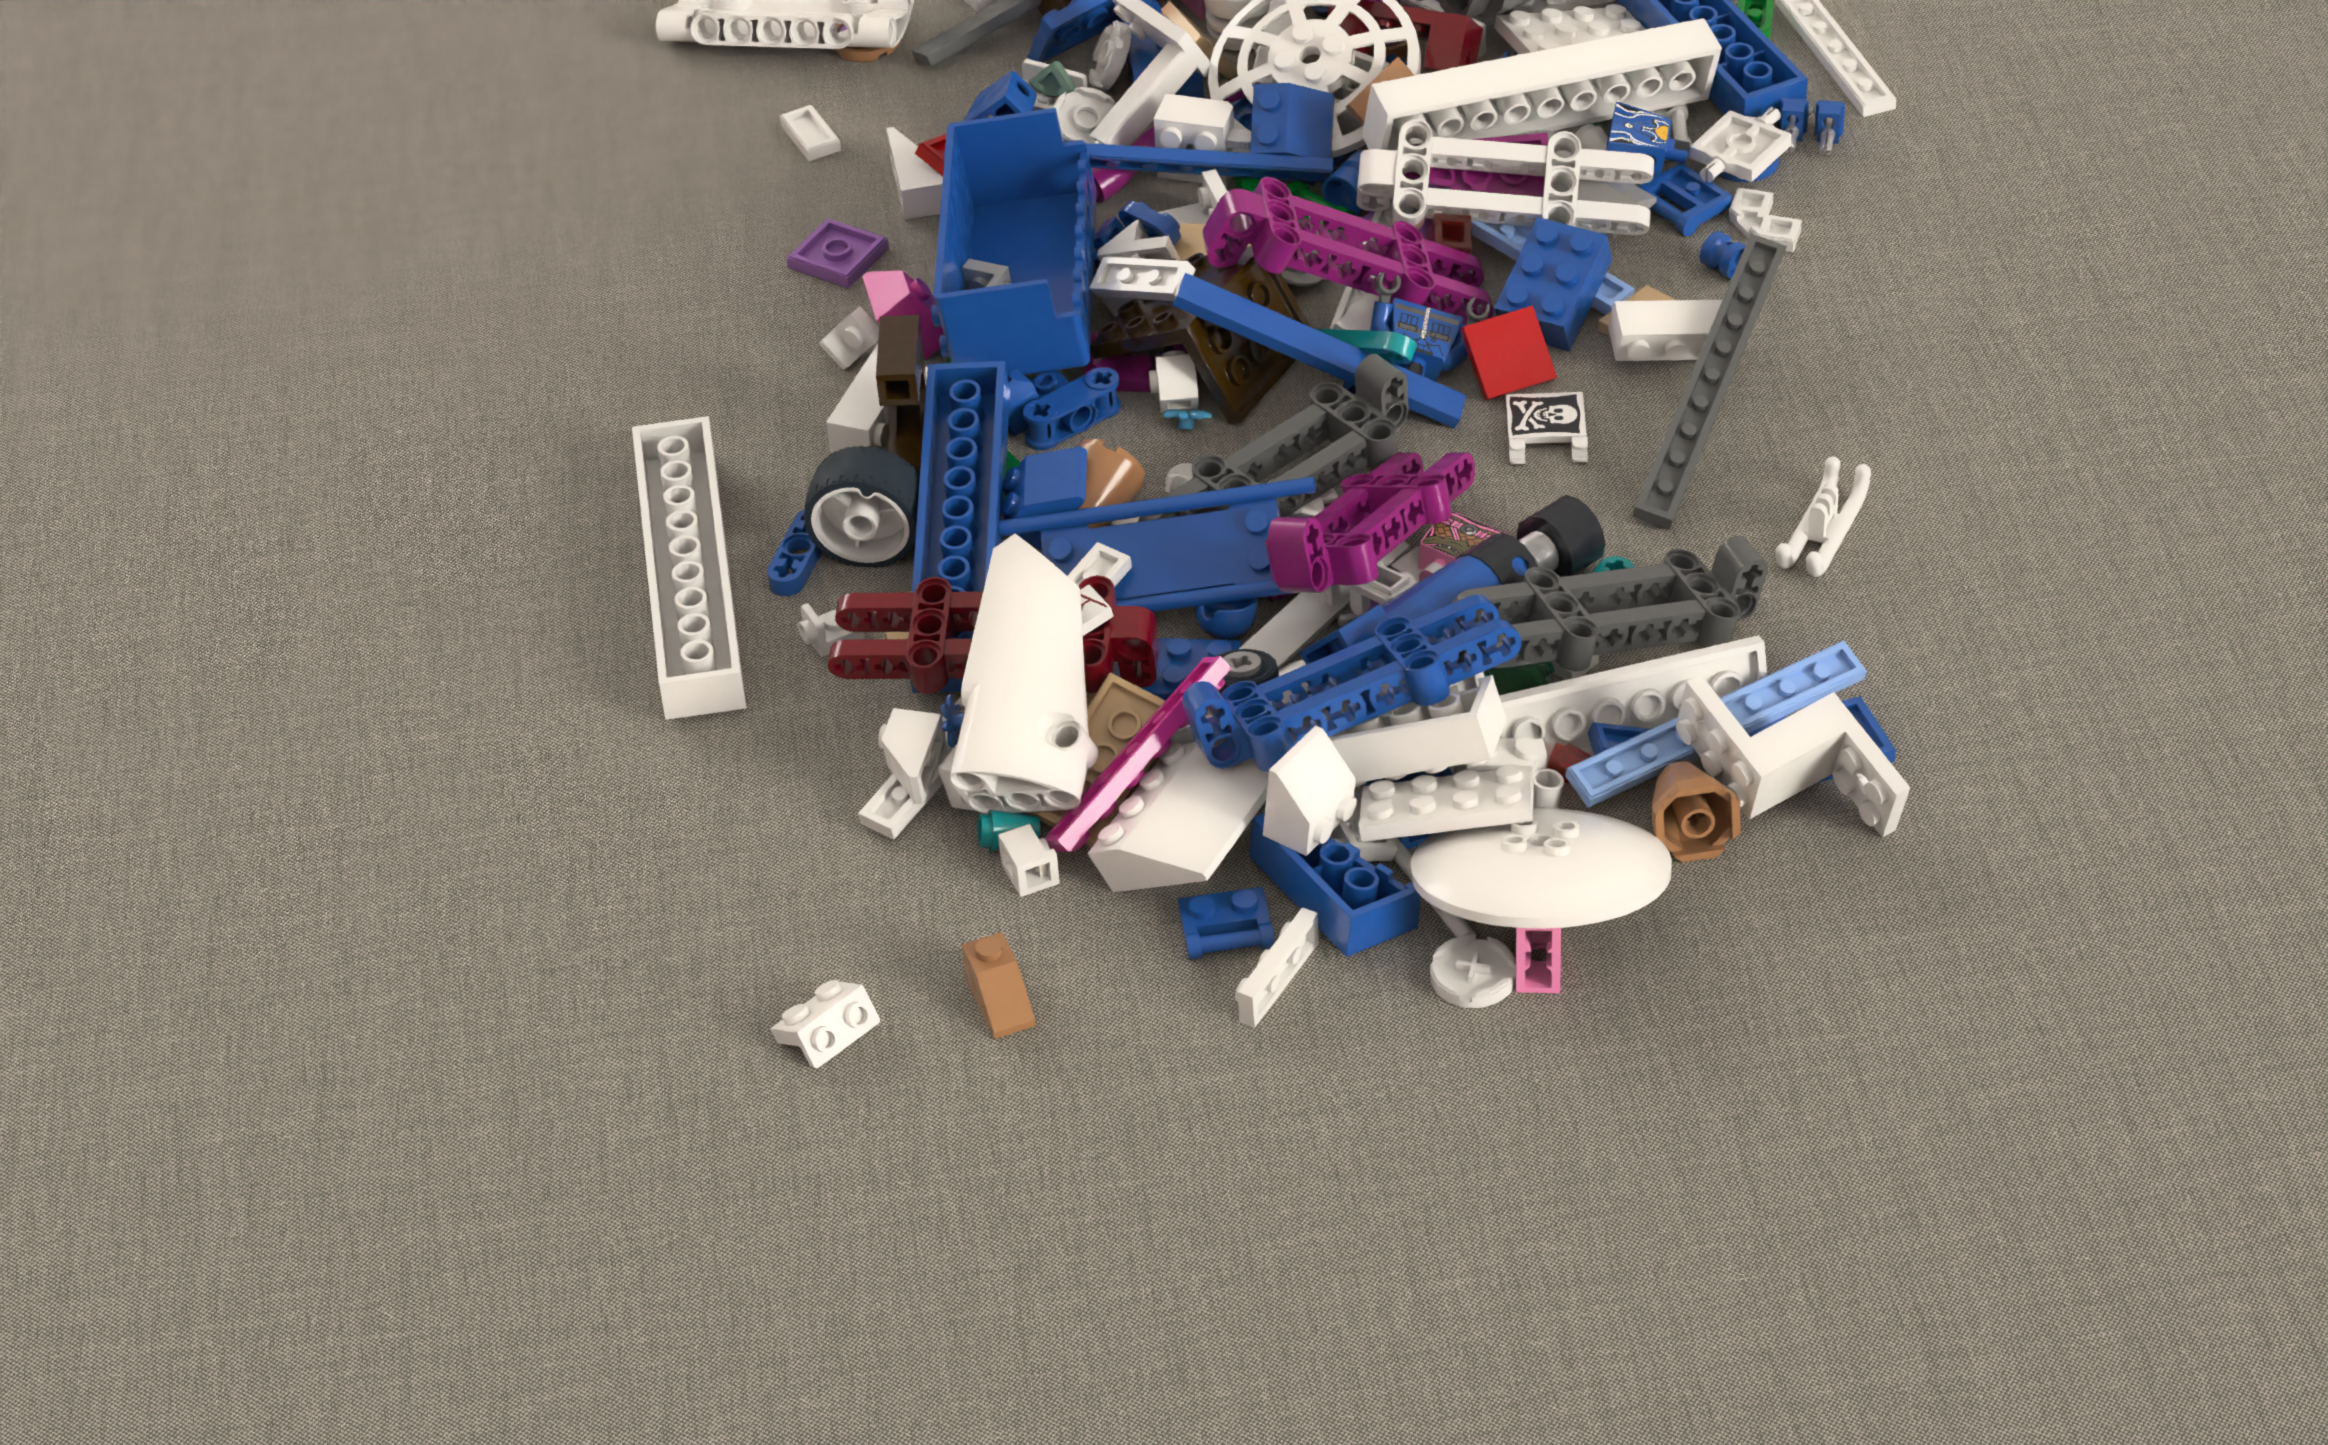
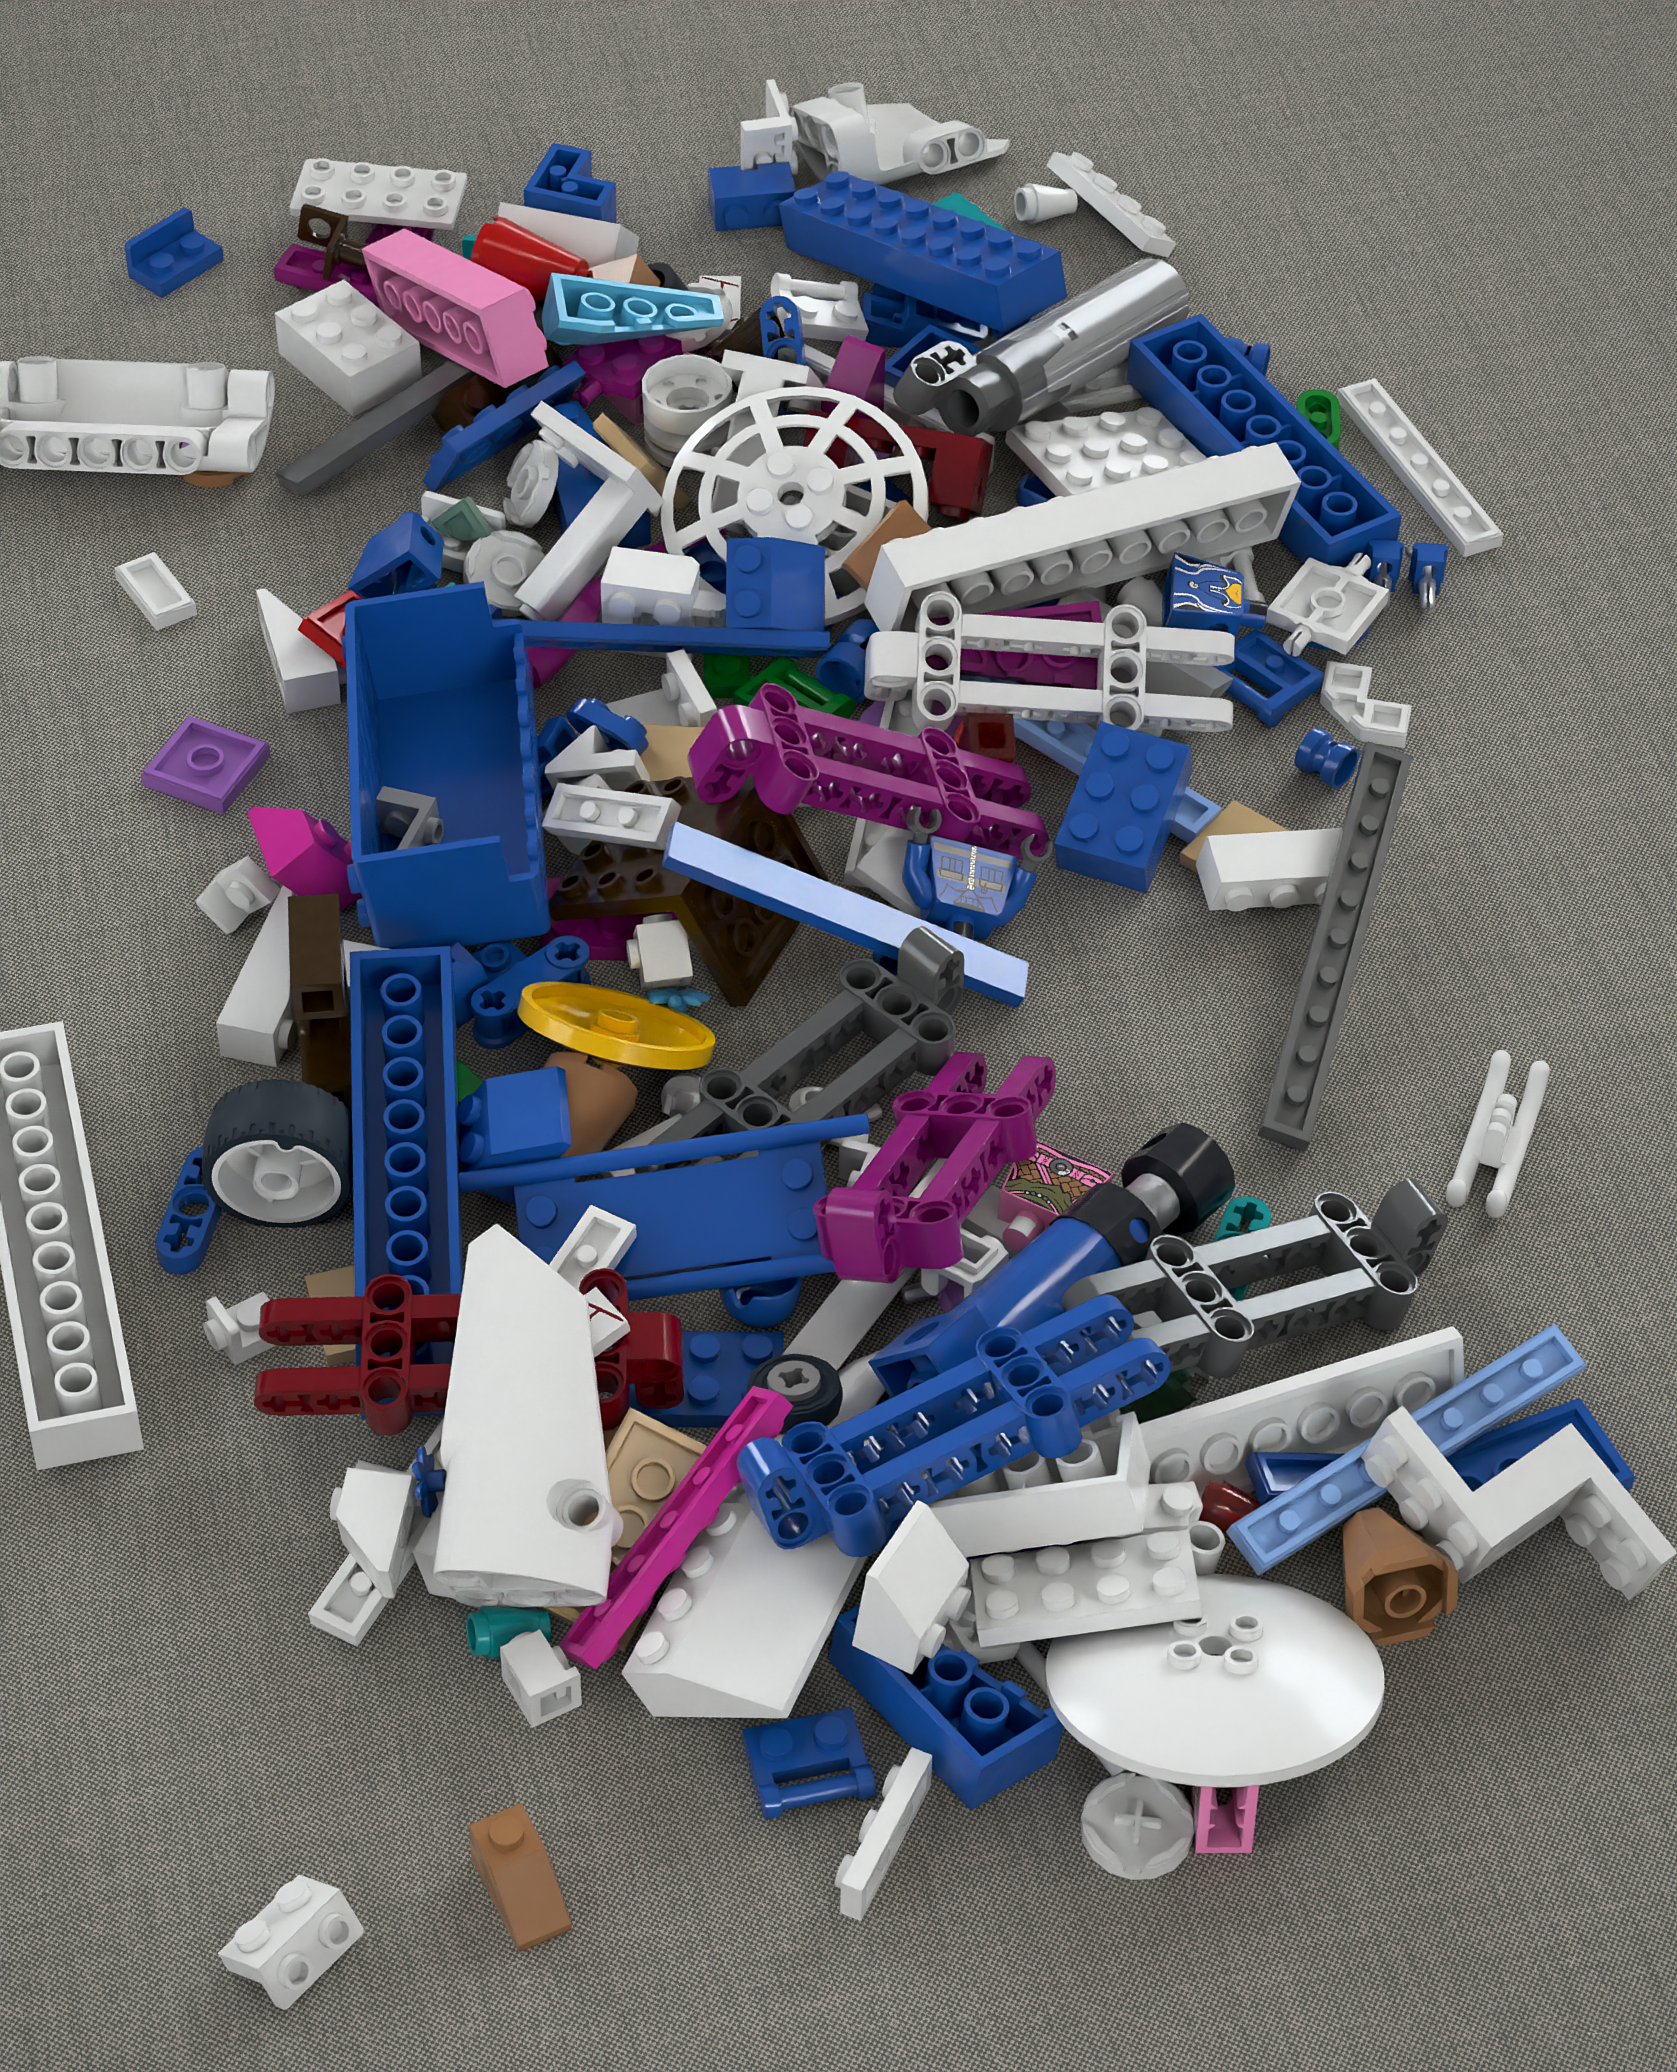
camera: 10 degrees left, 5 degrees up
(1132, 428) = (616, 1026): none -> yellow dish
(1388, 345) = (924, 904): teal beam -> none
(1508, 353) = (1077, 905): red tile -> none
(1546, 420) = (1132, 995): flag -> none

